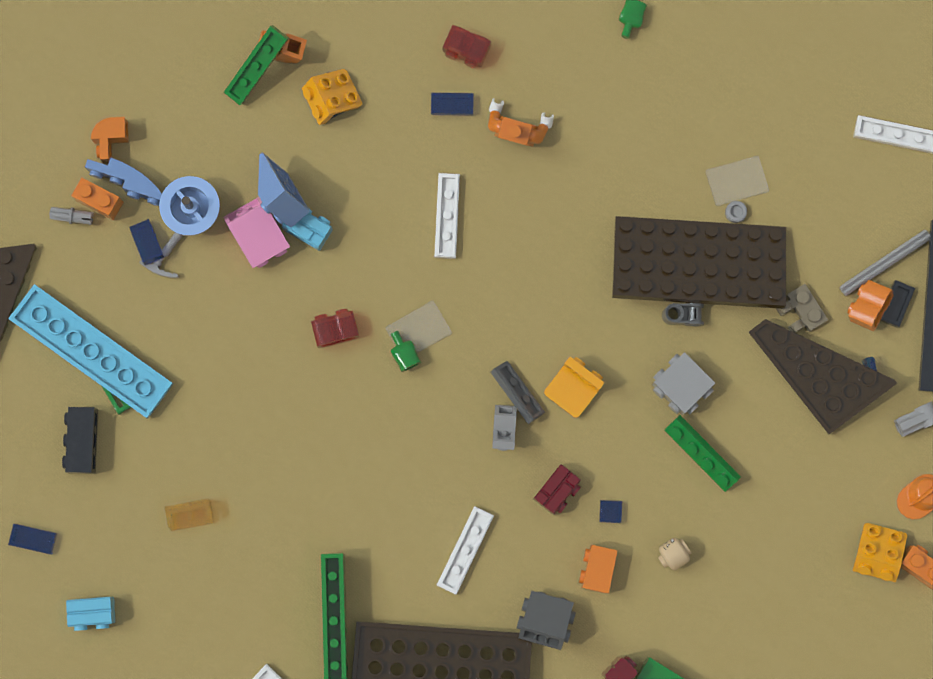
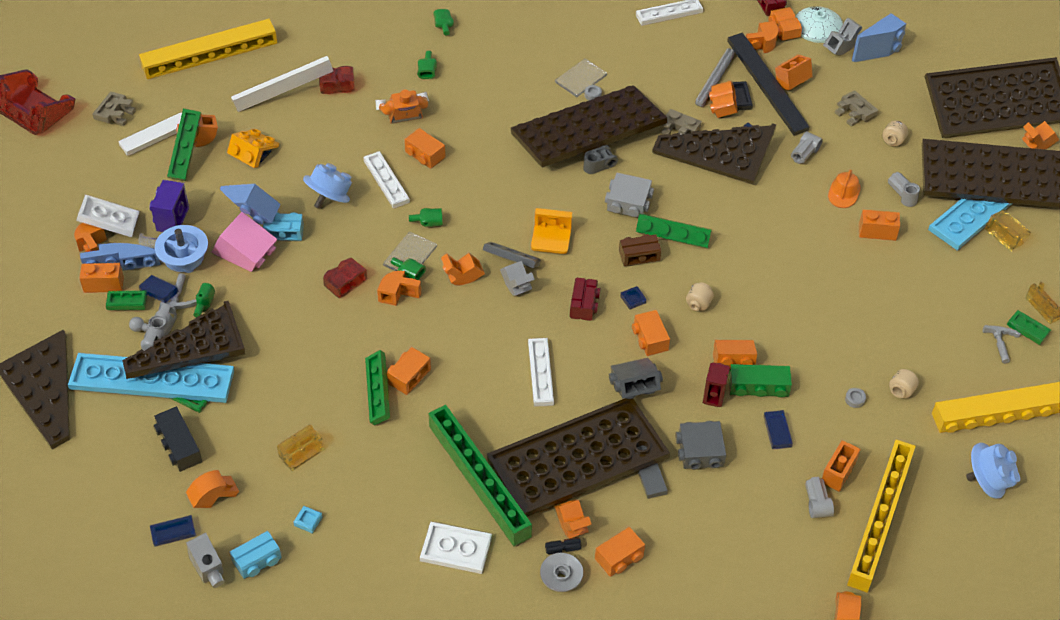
camera: 30 degrees left, 30 degrees down
(44, 589) = (205, 560): none -> light grey torso
(71, 215) = (85, 299): light grey axle -> none
(85, 518) = (210, 486): none -> orange brick
(110, 239) = (126, 300): none -> green plate
(131, 283) = (157, 327): none -> light grey piece
(136, 122) = (108, 215): none -> white tile
(150, 337) = (202, 341): none -> dark brown wing
(158, 595) = (308, 519): none -> medium azure tile
(162, 174) = (147, 241): none -> clear piece
(182, 282) = (204, 299): none -> green piece
(202, 143) = (169, 205): none -> dark purple brick
(239, 20) = (150, 135): none -> white tile
(296, 484) = (377, 387): none -> green plate
(336, 480) = (408, 370): none -> orange brick
(375, 203) = (329, 184): none -> light blue piece
(377, 366) = (395, 285): none -> orange brick
(399, 27) = (282, 84): none -> white tile
(452, 104) = (347, 116): clear blue tile -> none
(456, 386) = (464, 270): none -> orange brick
(461, 294) = (428, 217): none -> green piece
(507, 198) = (424, 148): none -> orange brick
(576, 76) = (427, 66): none -> green piece
(652, 458) = (639, 250): none -> reddish brown brick
(663, 645) = (735, 352): none -> orange brick
(880, 552) = (844, 231): light orange bracket -> none

